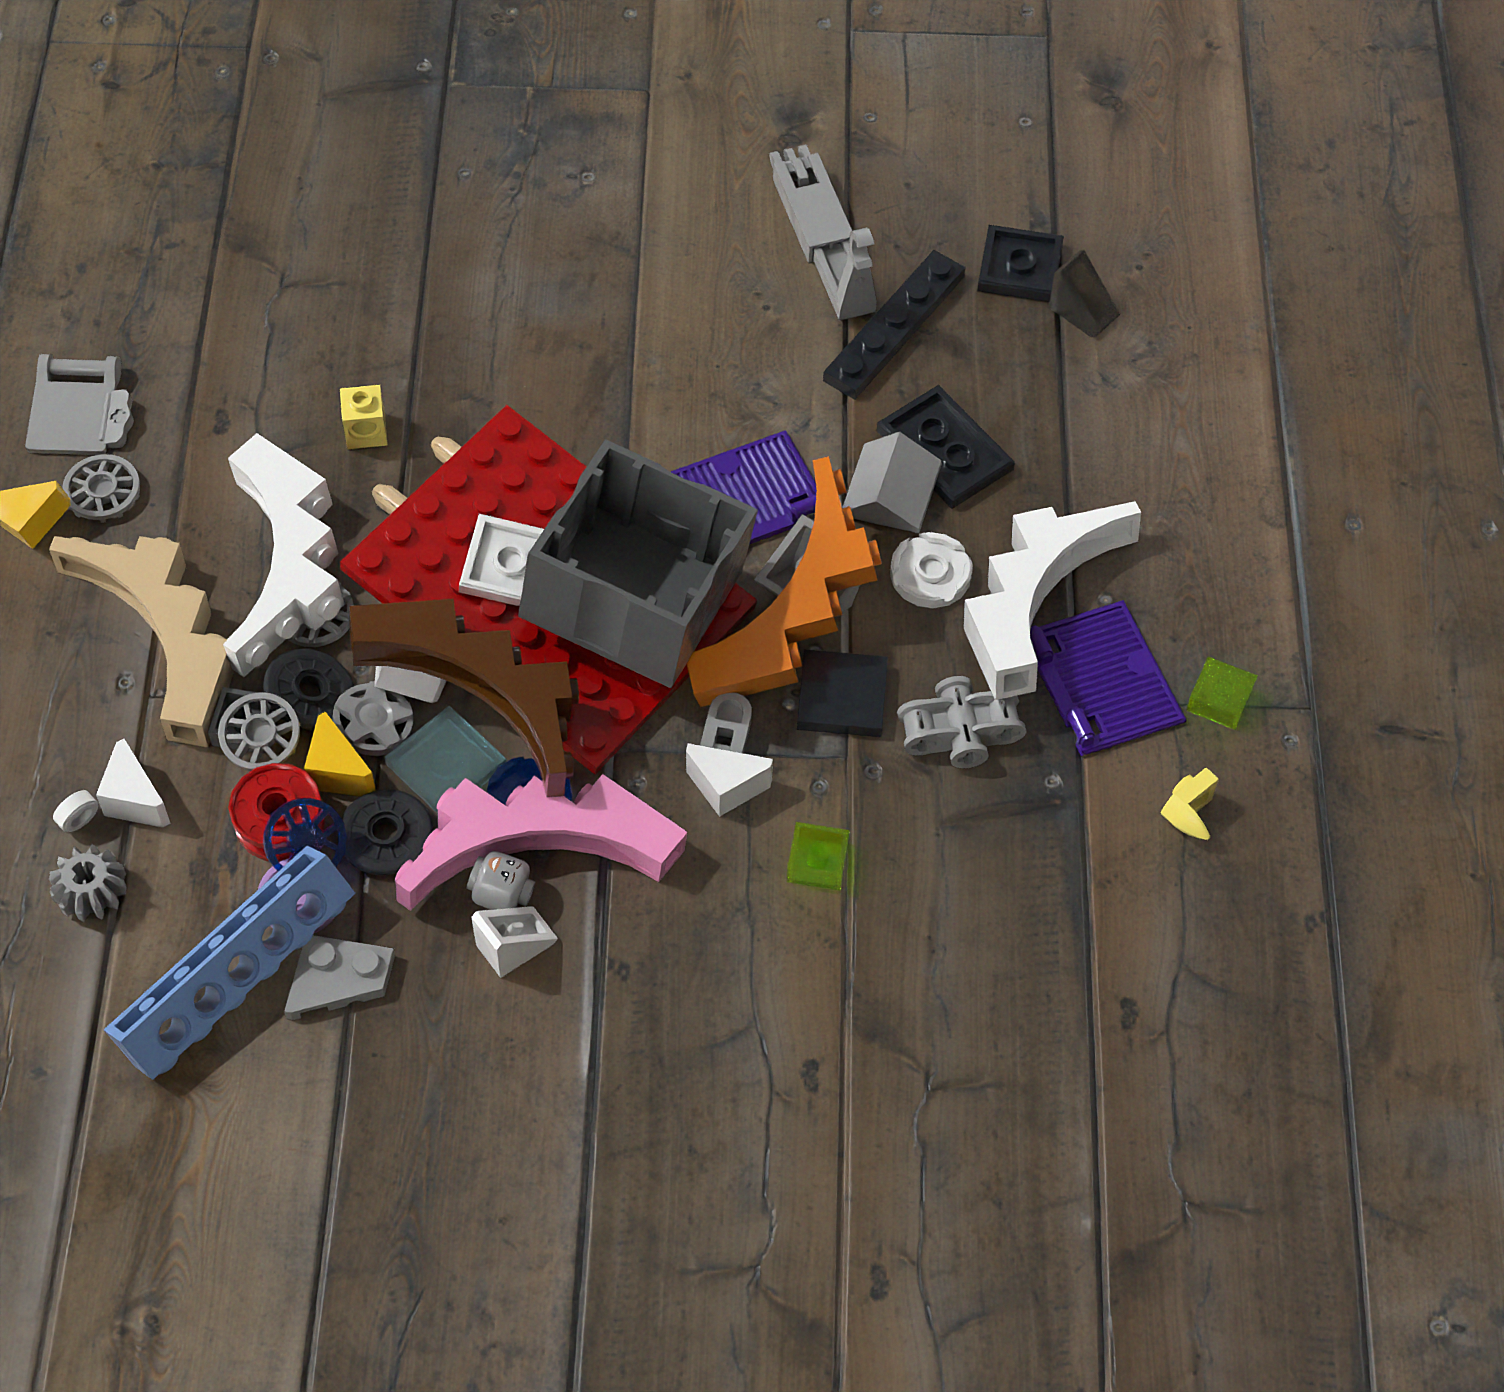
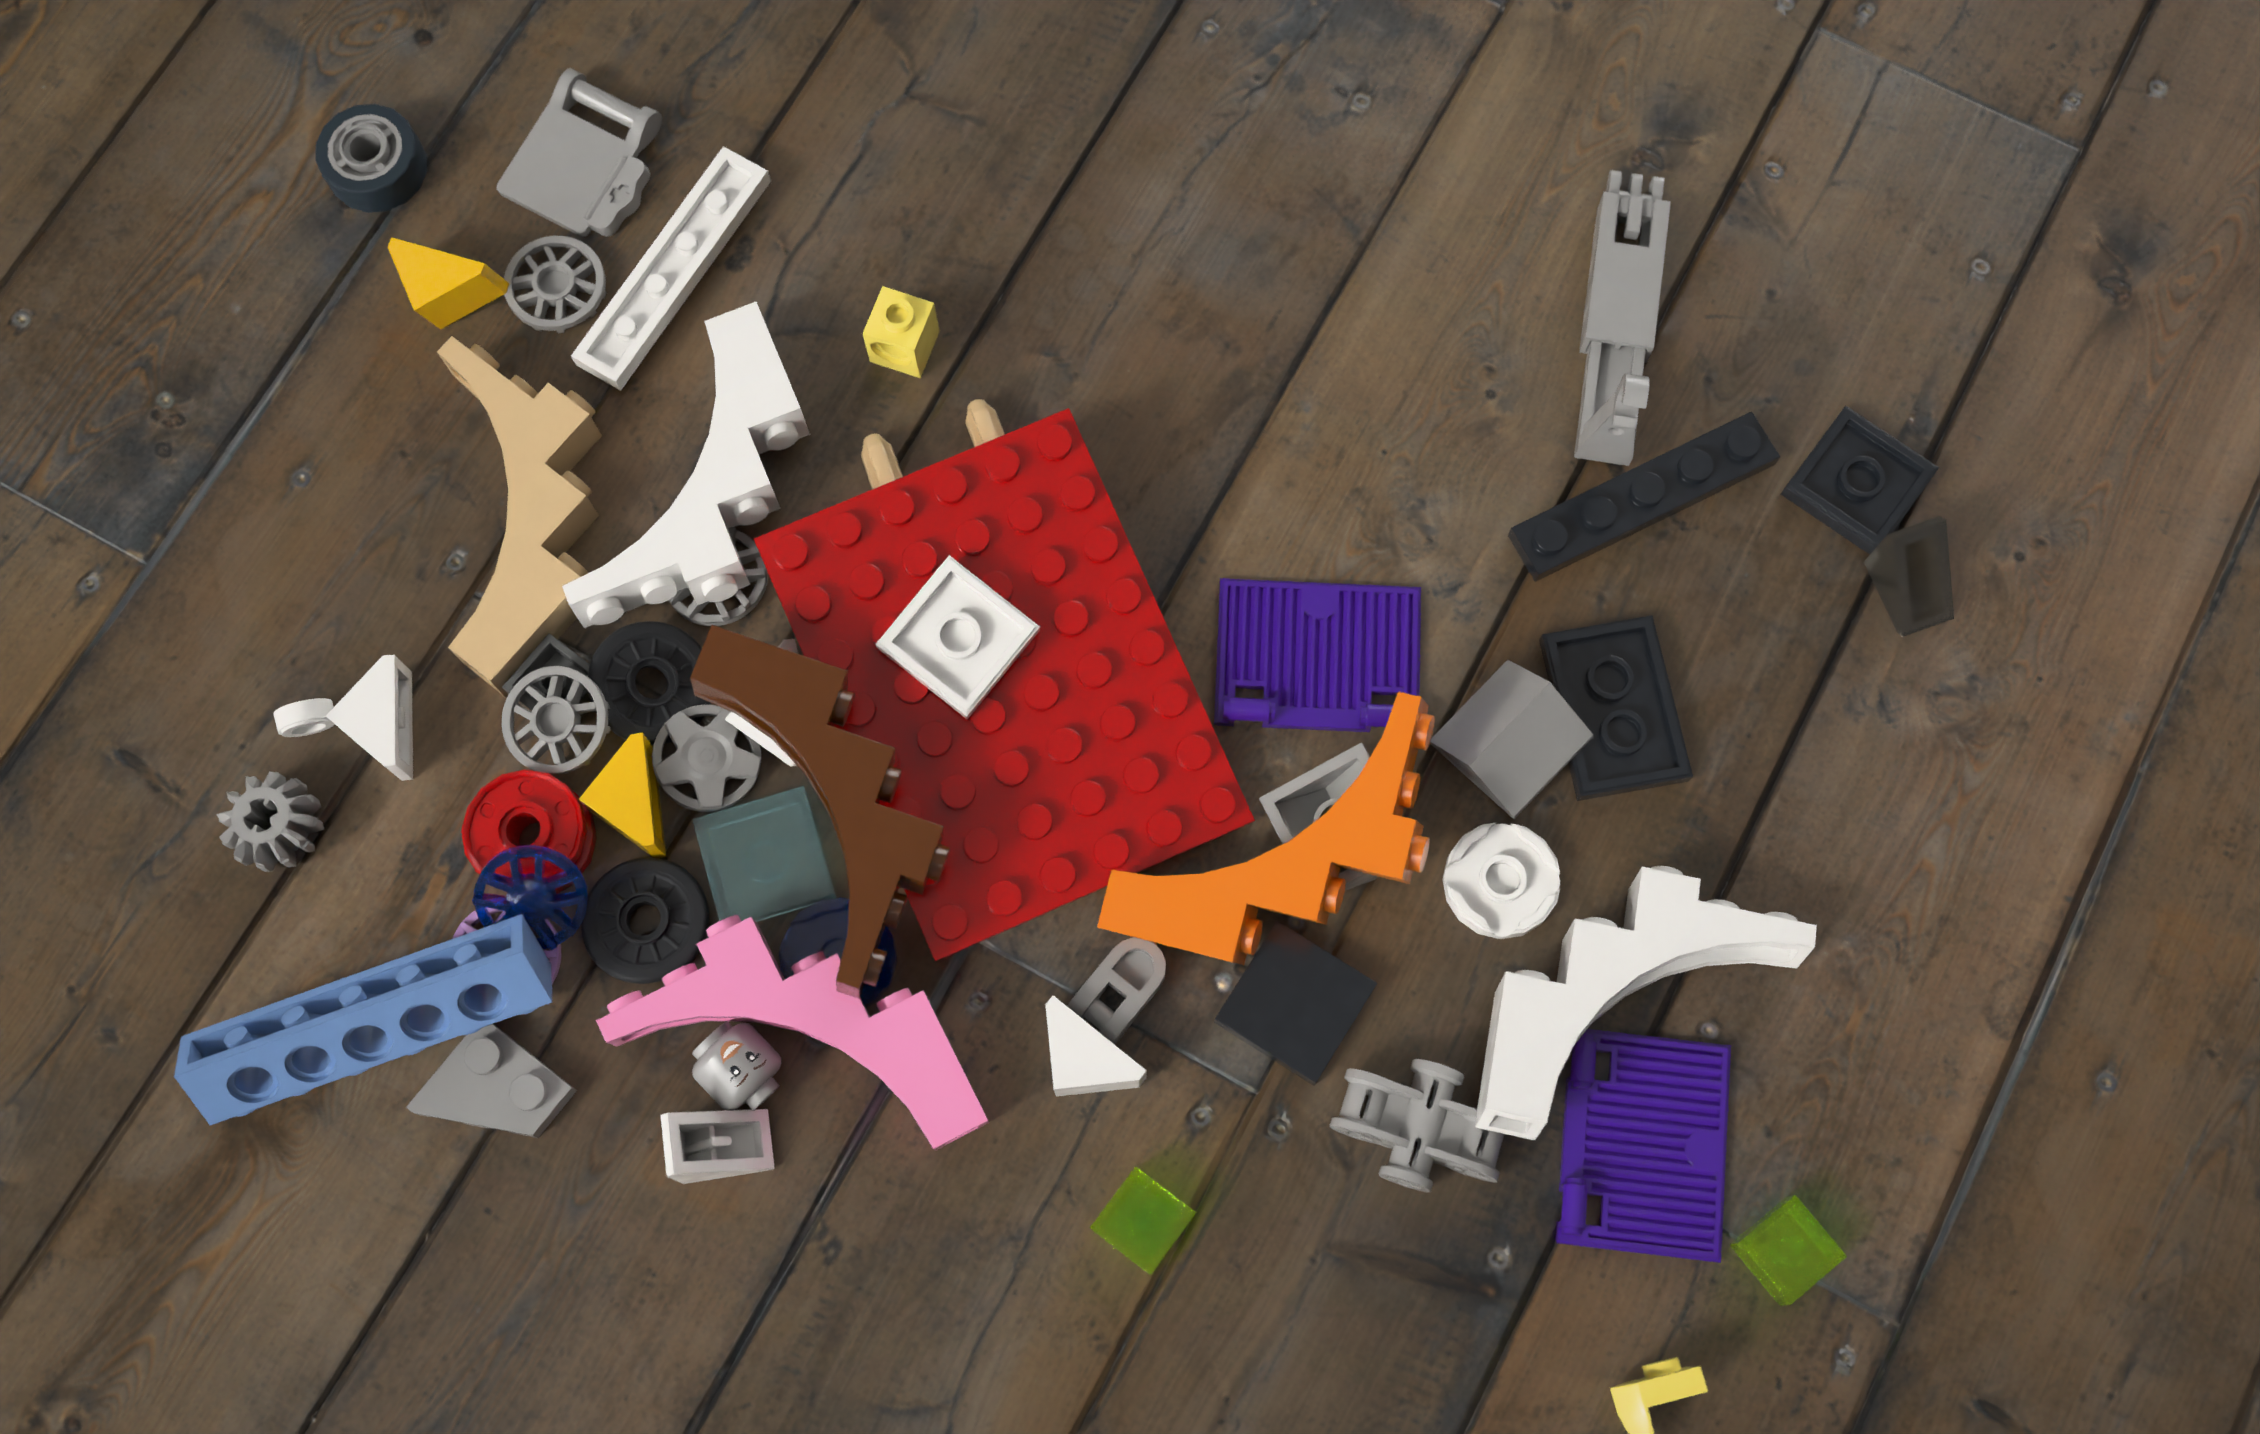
camera: 30 degrees right, 15 degrees up
(180, 445) = (671, 268): none -> white plate
(636, 563) = (1097, 731): dark grey tile -> none

